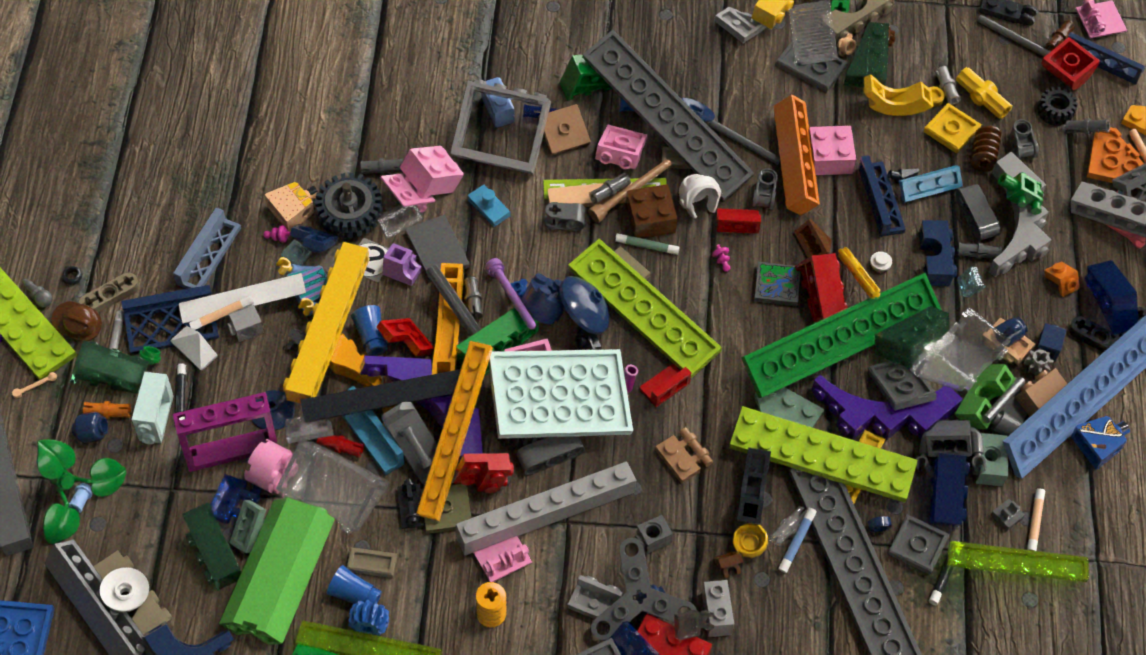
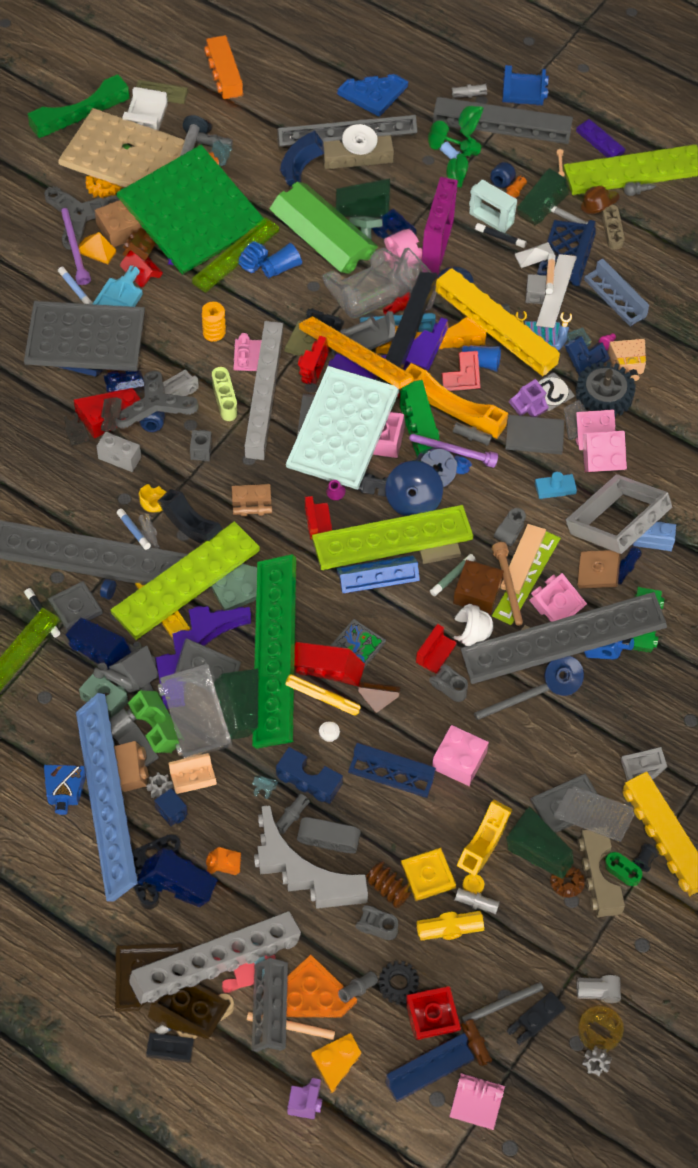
camera: 120 degrees right, 0 degrees up
(77, 279) = (643, 209): black piece -> none
(150, 354) = (542, 227): green plate -> none
(372, 562) = (297, 284): dark tan tile -> none
(381, 166) = (635, 431): dark grey pin -> none
(453, 300) = (468, 408): dark grey axle -> none
(571, 558) = (224, 393): none -> yellowish green beam
(609, 188) = (517, 566): dark grey pin -> none
(691, 294) = (378, 574): none -> fence
(720, 253) = (404, 618): dark pink hair -> none
(728, 560) = (148, 476): reddish brown tile -> none
(796, 155) = (470, 720): orange brick -> none
(846, 45) = (570, 838): light nougat plate -> none
(902, 174) = (404, 803): black bar -> none
(930, 183) = (380, 816): dark azure plate -> none
(1003, 400) = (141, 726): flat silver bar -> none
(1008, 514) = (55, 682): dark grey tile -> none
(1013, 329) = (194, 769): dark blue piece -> none
(1023, 191) = (316, 861): green piece -> none
(1036, 520) = (36, 699): light nougat bar -> none

